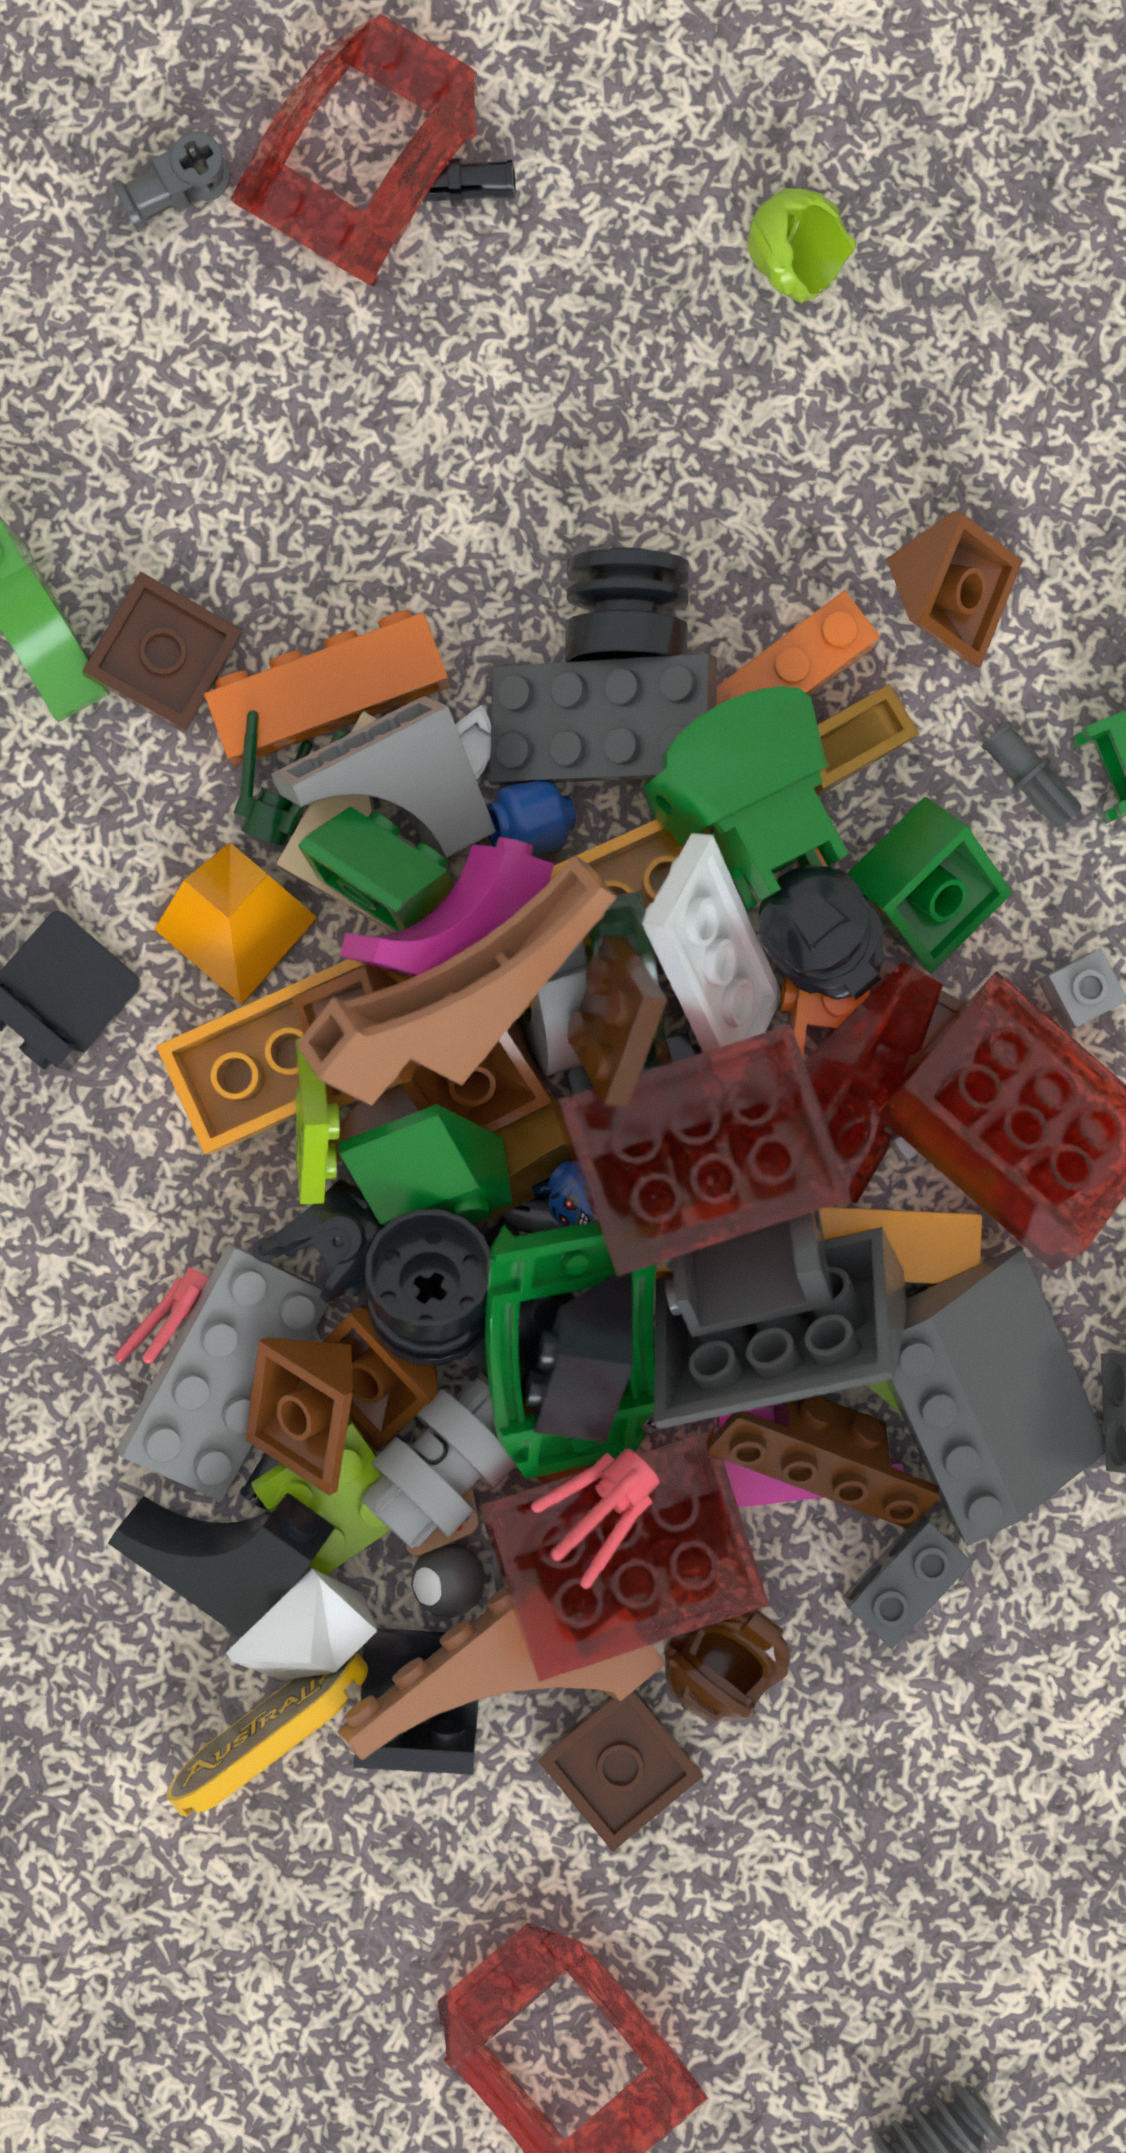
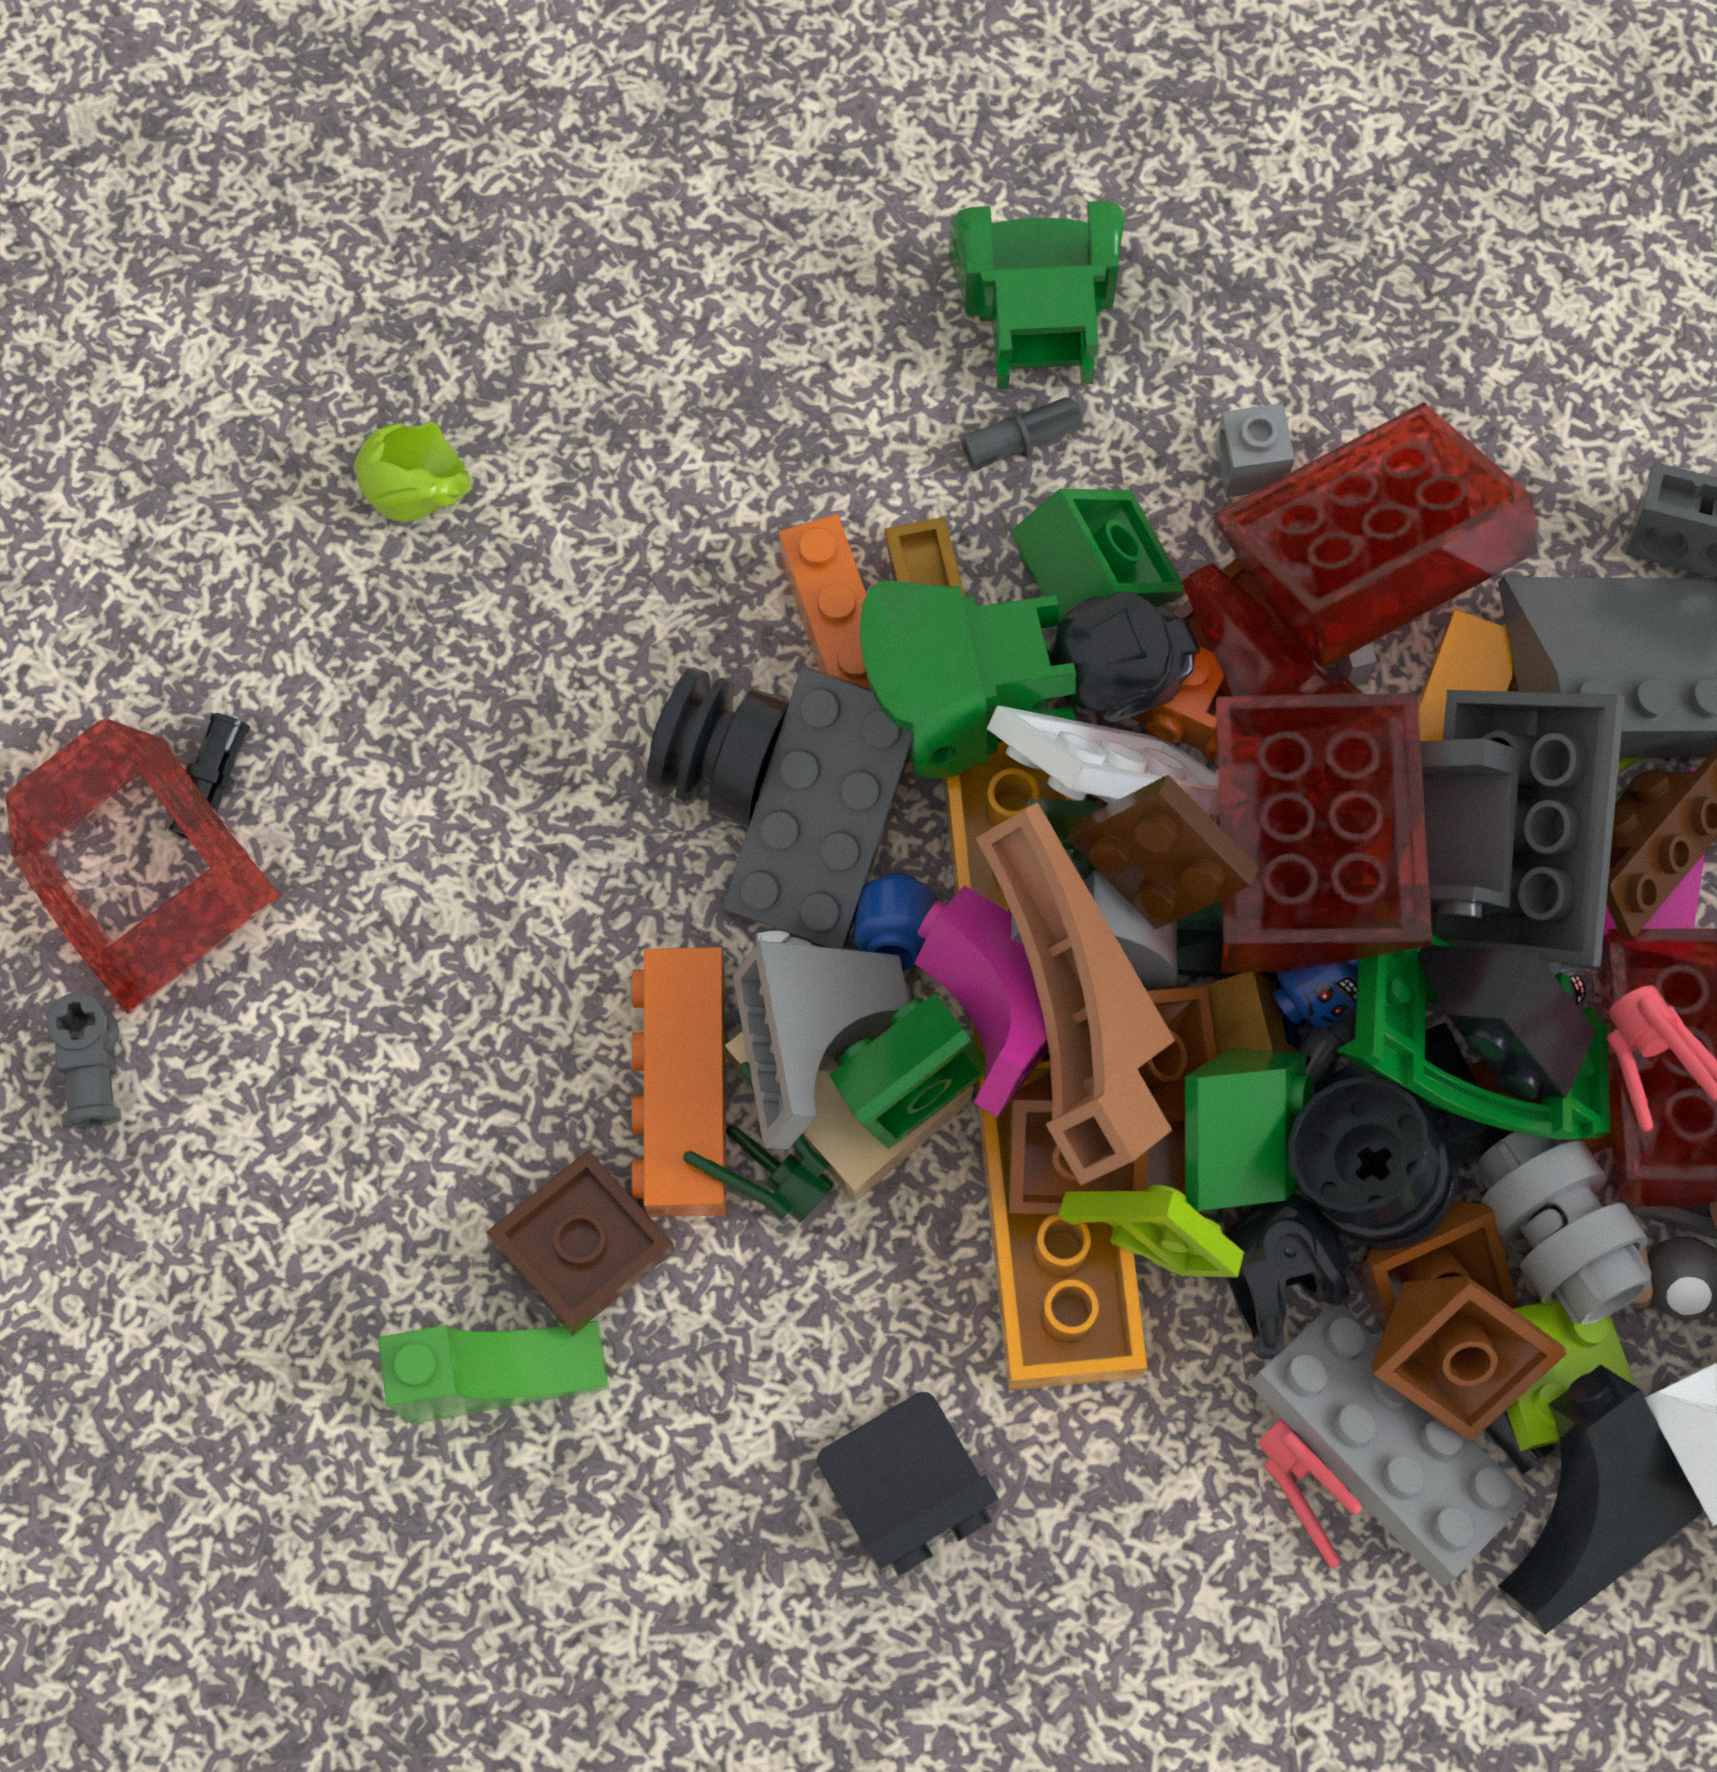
camera: 75 degrees left, 15 degrees down
(234, 921) = (895, 1267): light orange slope -> none
(955, 584) = (805, 435): dark orange slope -> none

